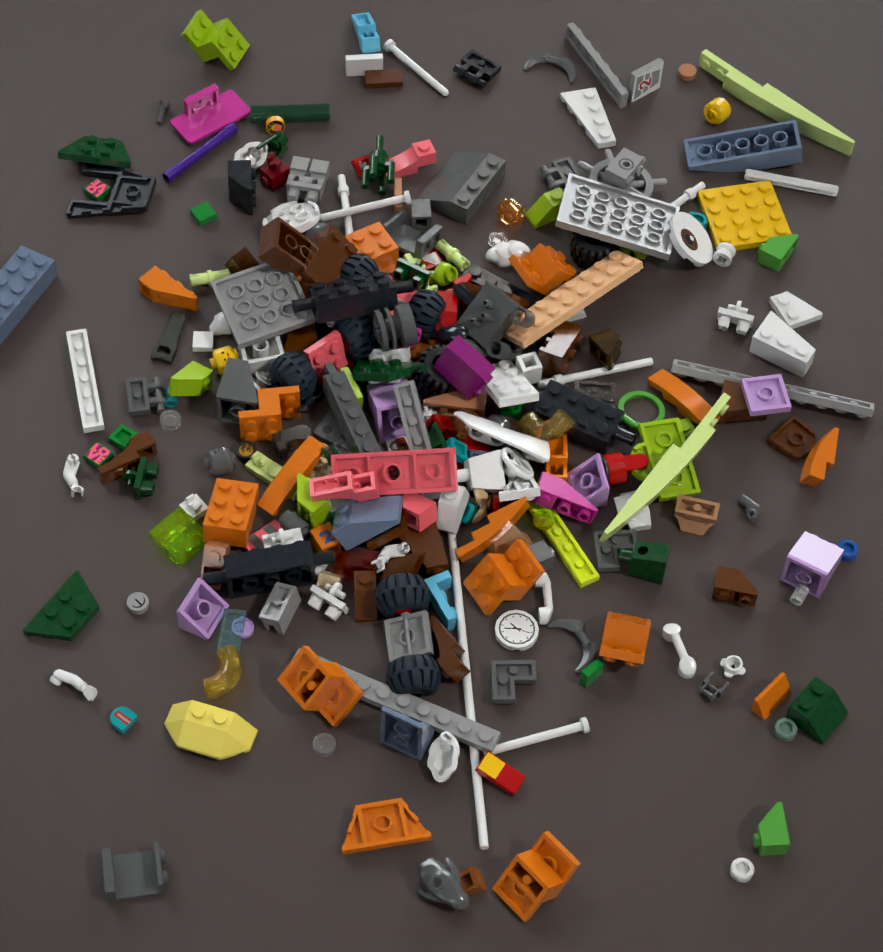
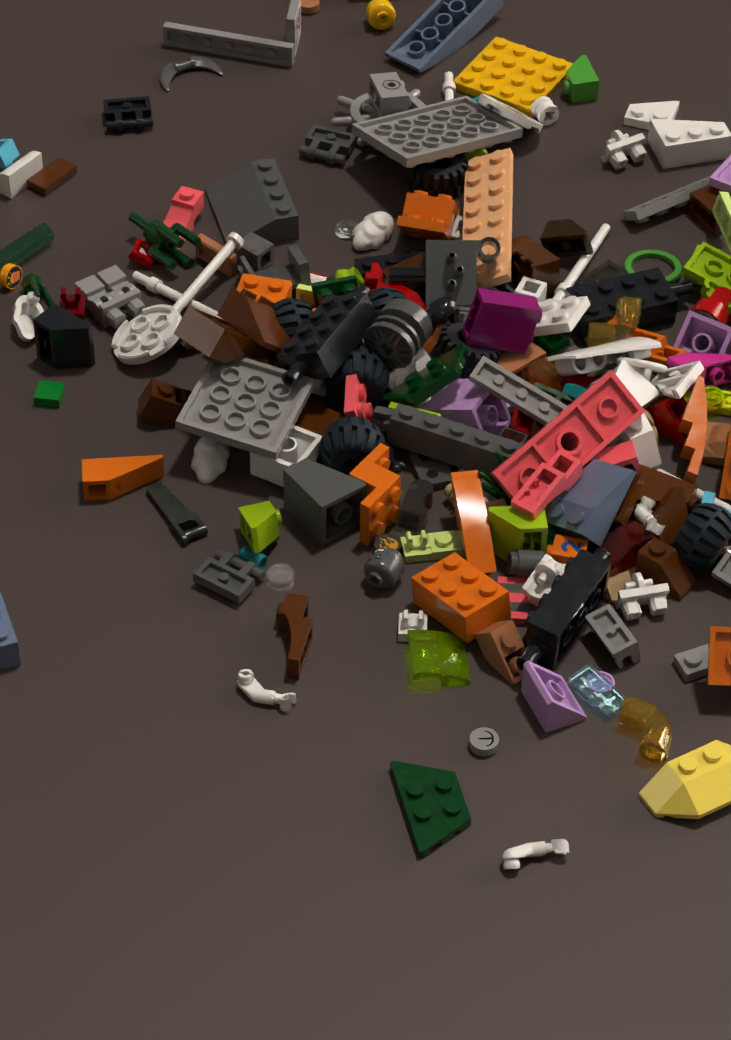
camera: 45 degrees left, 10 degrees down
(85, 381) = (153, 606): white plate -> none
(98, 455) = (259, 657): tile -> none
(121, 437) = (260, 625): green tile -> none
(122, 719) = (617, 842): teal tile -> none
(138, 478) = (331, 642): dark green hips -> none
(203, 341) = (211, 492): white tile -> none
(207, 277) = (139, 437): yellowish green pin -> none
(220, 357) = (261, 486): yellow head -> none
(390, 46) = (71, 148): white bar -> none
(452, 255) = (329, 265): yellowish green pin -> none
(511, 212) = (330, 197): clear orange head -> none
(545, 208) = (356, 173): lime slope -> none
(591, 115) = (279, 86): white wing -> none
(681, 395) = (669, 231): orange slope -> none
(792, 182) = (512, 28): white axle -> none

